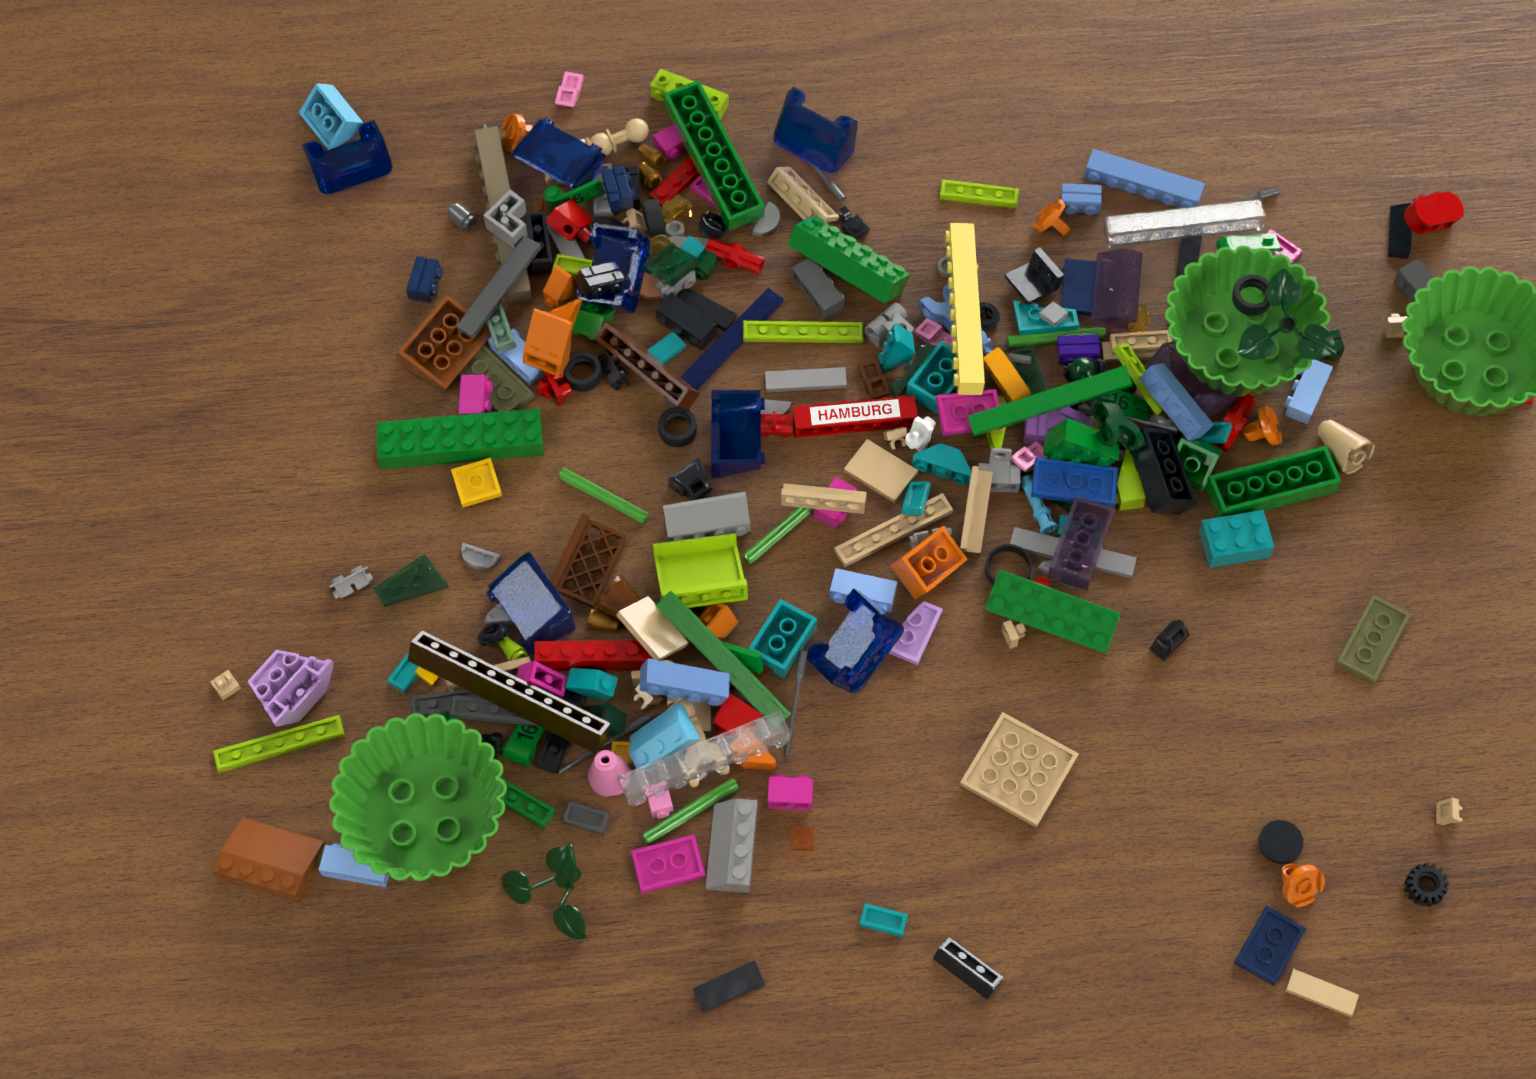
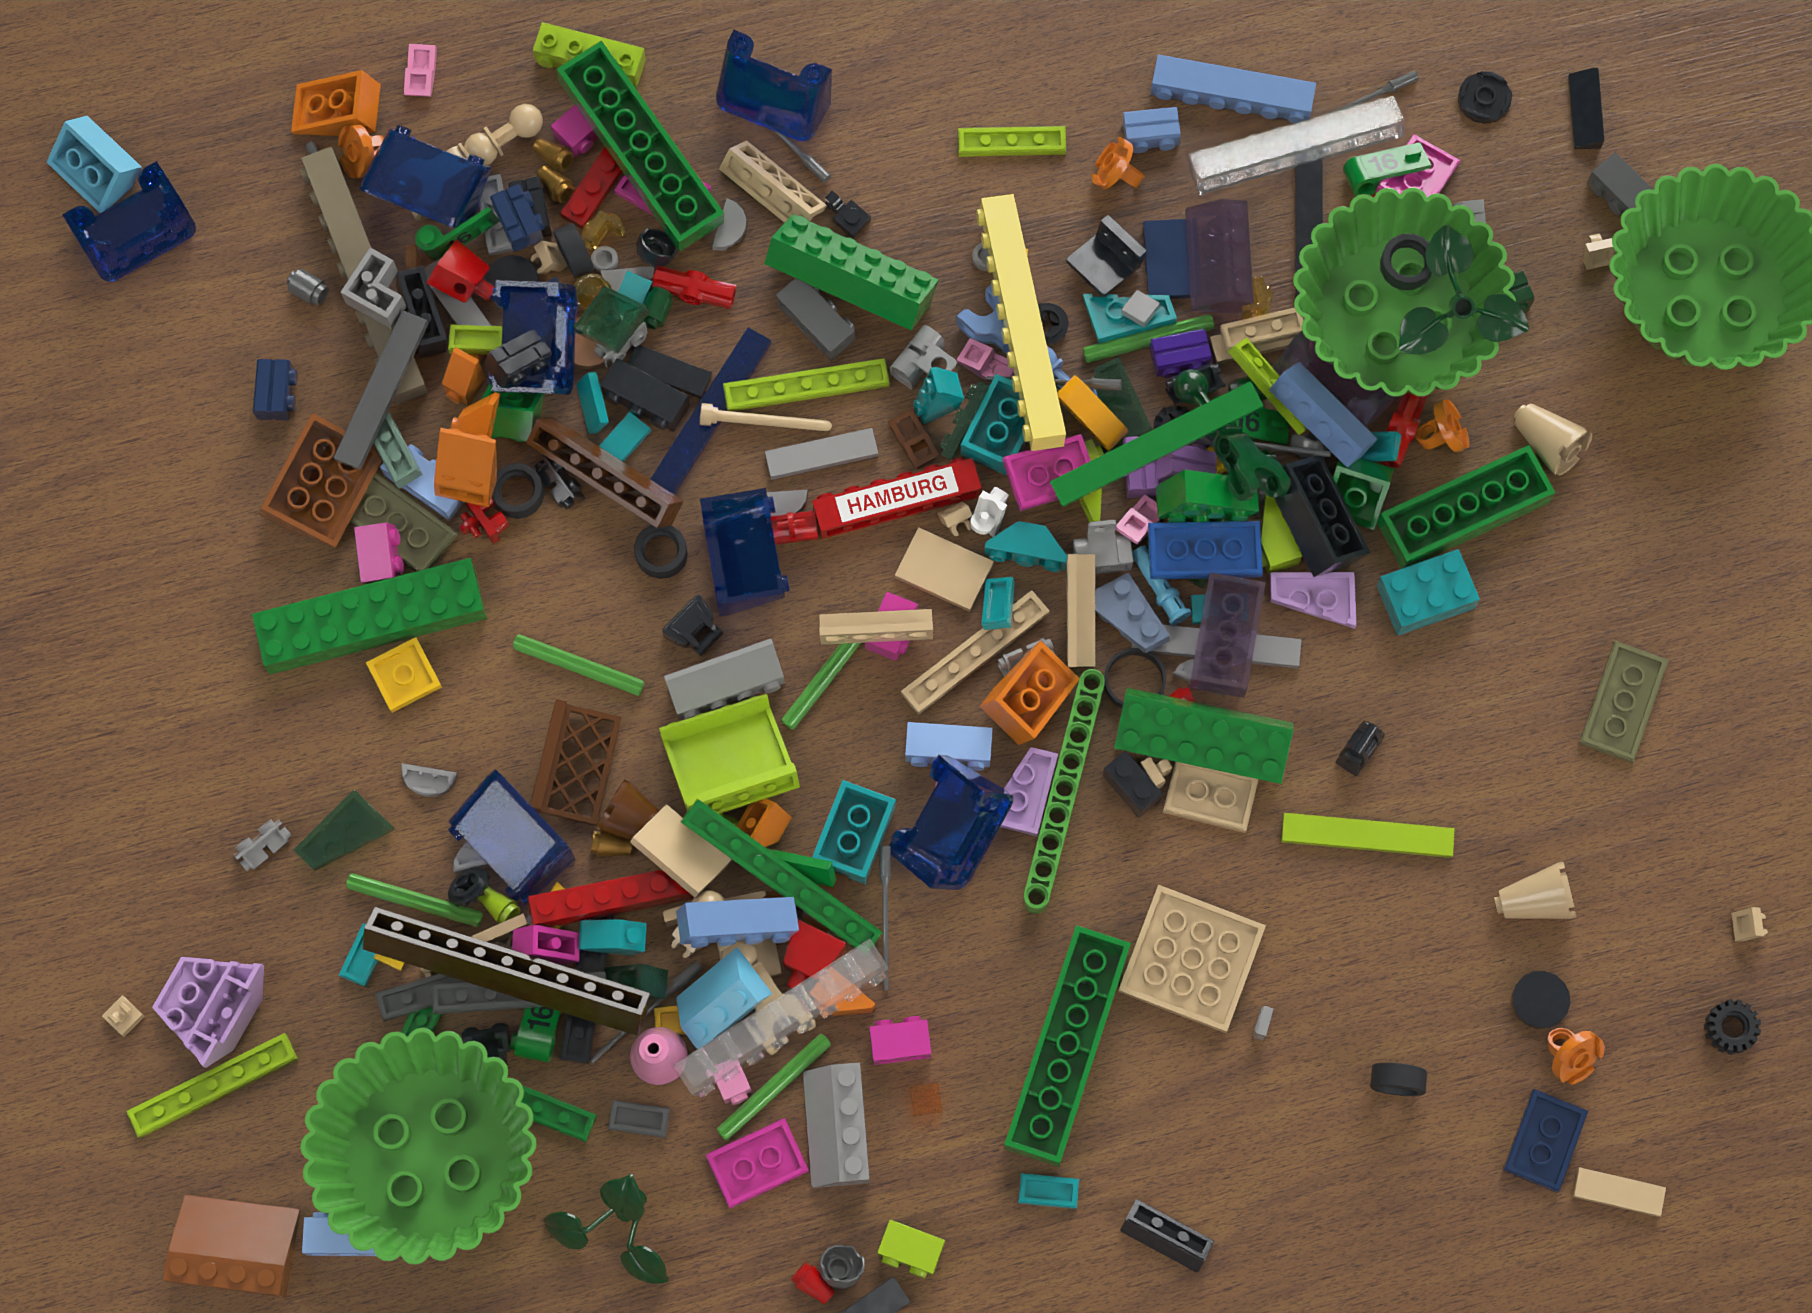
camera: 10 degrees left, 10 degrees up
(452, 638) = (414, 900): none -> bright green axle
(500, 100) = (336, 102): none -> orange slope
(647, 321) = (592, 403): none -> teal tile
(693, 957) = (810, 1282): none -> red cone
(717, 947) = (841, 1266): none -> dark grey hair
(730, 340) = (711, 415): none -> tan piece
(771, 942) = (910, 1248): none -> lime brick
(914, 815) = (1067, 1046): none -> green brick
(940, 644) = (1060, 803): none -> bright green beam
(994, 638) = (1132, 784): none -> black brick
(1012, 520) = (1130, 613): none -> sand blue wing
(1052, 656) = (1210, 796): none -> tan tile
(1065, 823) = (1263, 1022): none -> light grey tile
(1155, 529) = (1323, 596): none -> lavender wing
(1163, 879) = (1398, 1079): none -> black tyre
(1166, 703) = (1367, 835): none -> lime tile
(1289, 764) = (1538, 896): none -> tan cone
(1307, 392) = (1491, 382): light blue brick -> none
(1327, 213) = (1484, 97): none -> black tile
(1433, 212) = (1628, 78): red brick -> none

